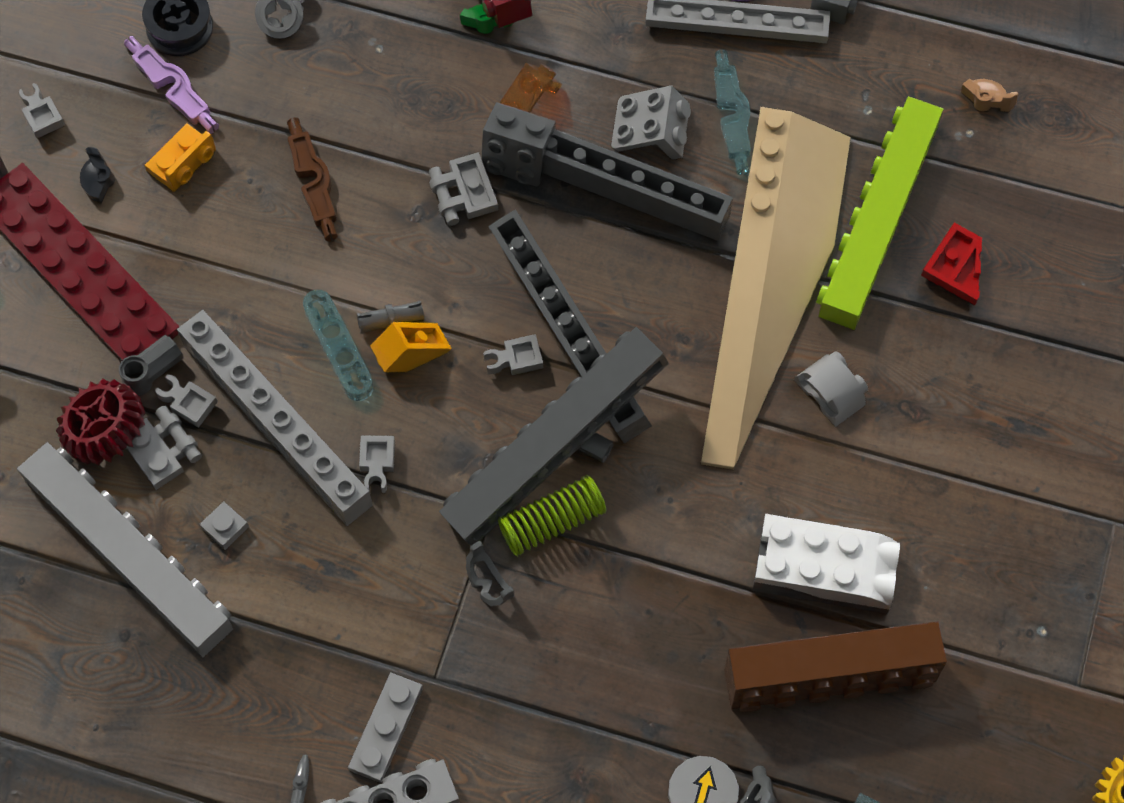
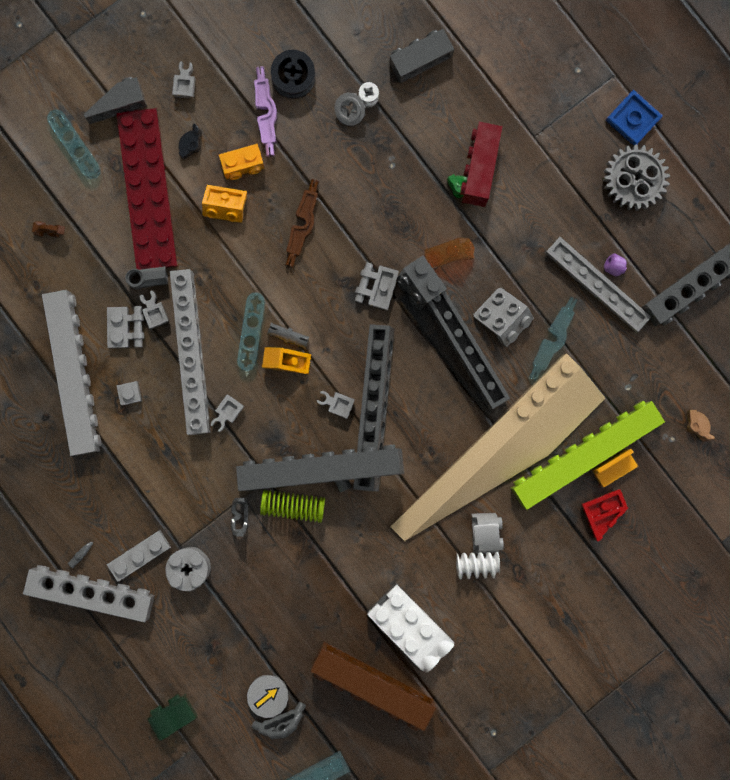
camera: 25 degrees right, 20 degrees up
(100, 422) = (88, 300): dark red gear -> none
(192, 217) = (224, 203): none -> light orange bracket
(470, 671) = (180, 577): none -> light grey brick
(850, 426) = (477, 565): none -> white piece
(927, 205) = (615, 467): none -> light orange panel

